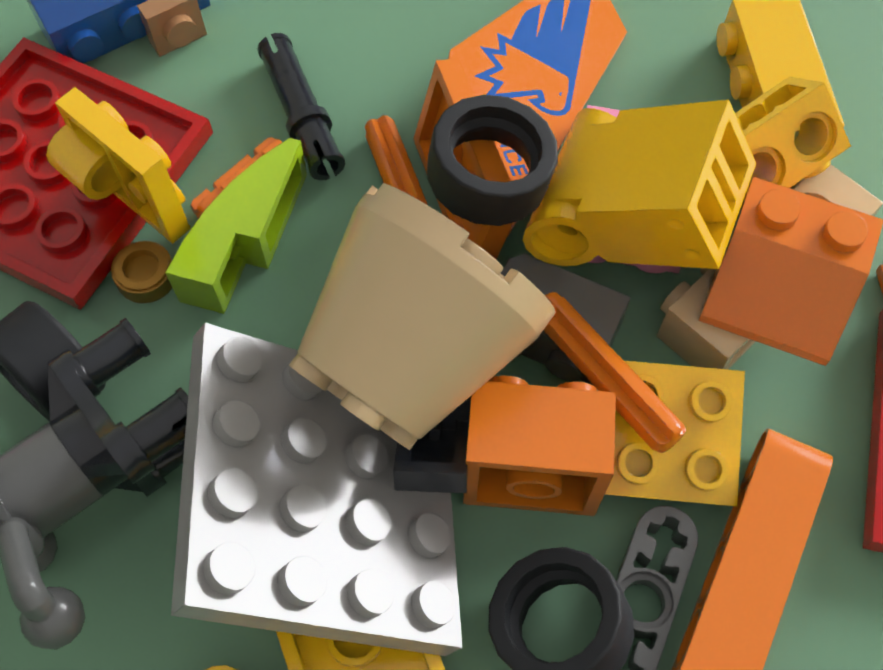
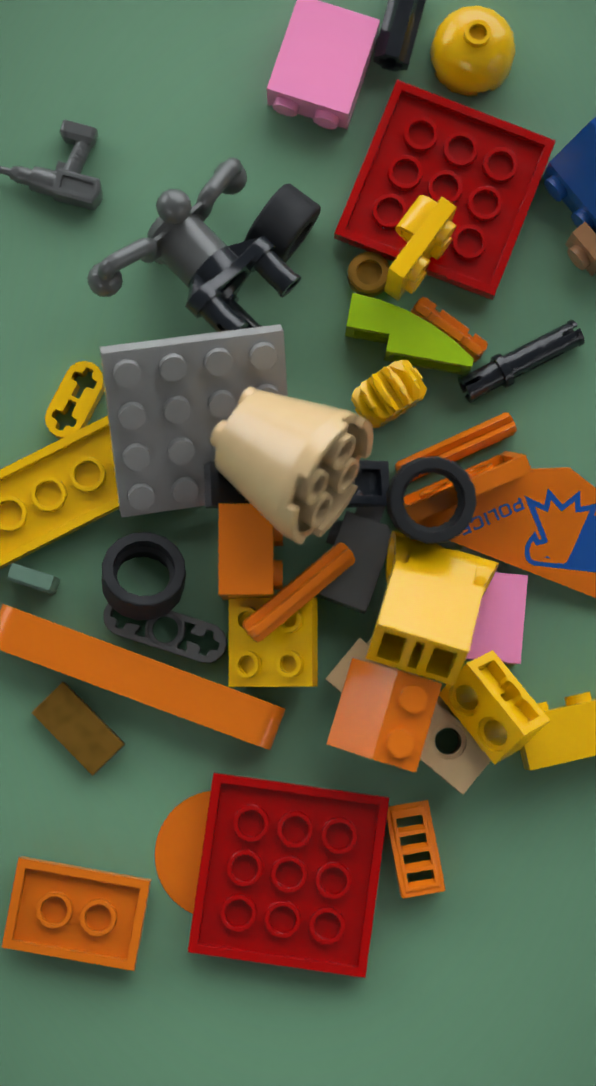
camera: 85 degrees right, 20 degrees up
(311, 237) = (389, 393): none -> yellow gear

